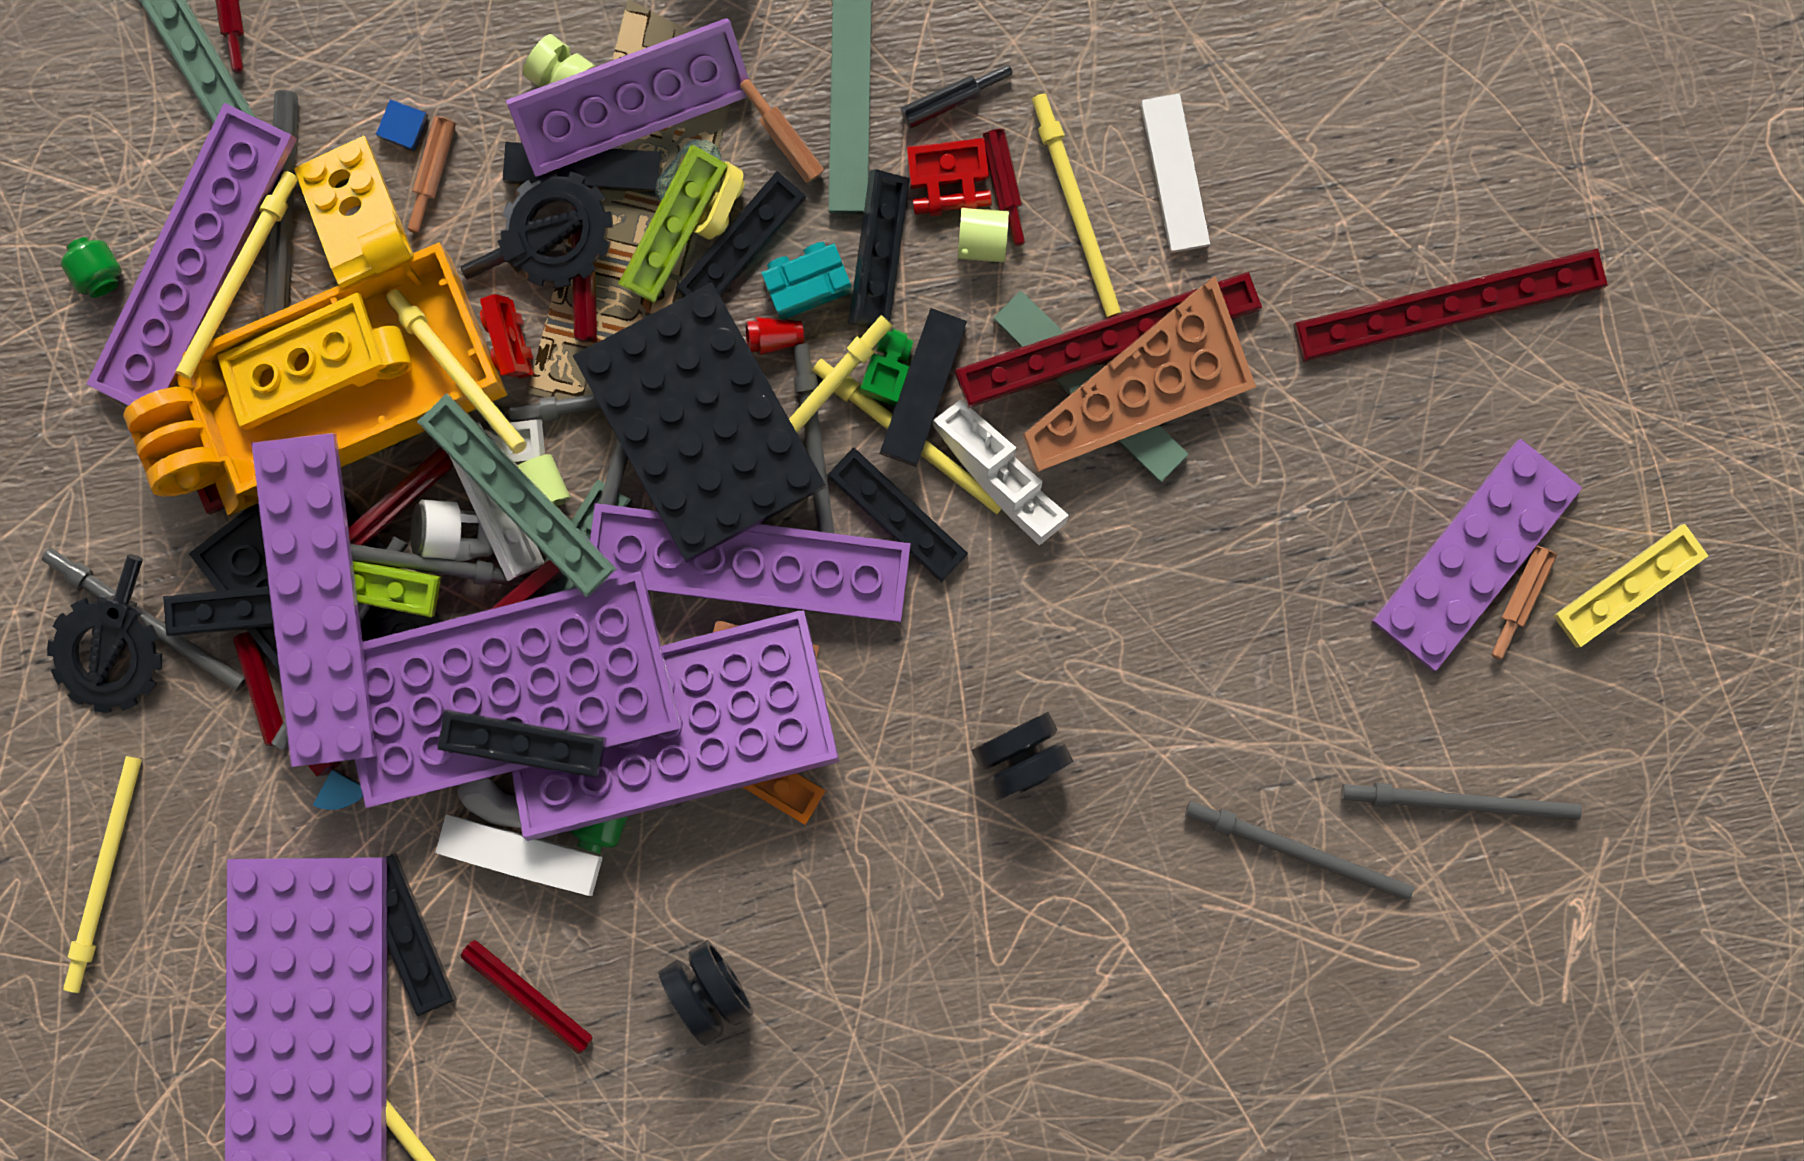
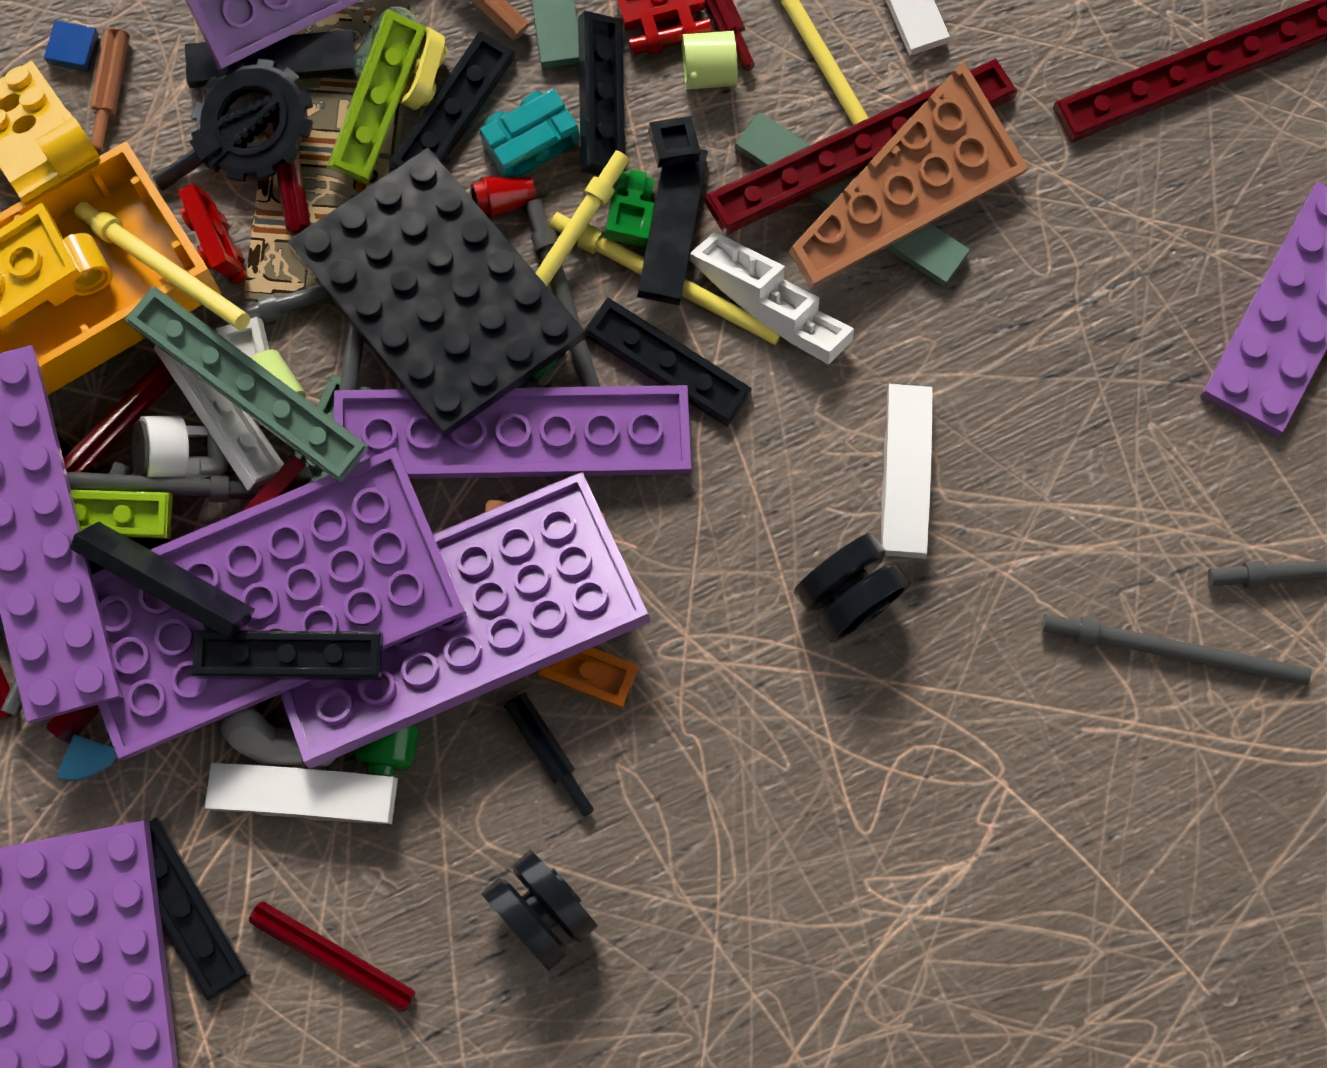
camera: 15 degrees left, 10 degrees down
(422, 661) = (162, 579): none -> black tile
(735, 849) = (547, 749): none -> black axle
(936, 312) = (674, 141): none -> black plate
(1092, 653) = (907, 471): none -> white slope

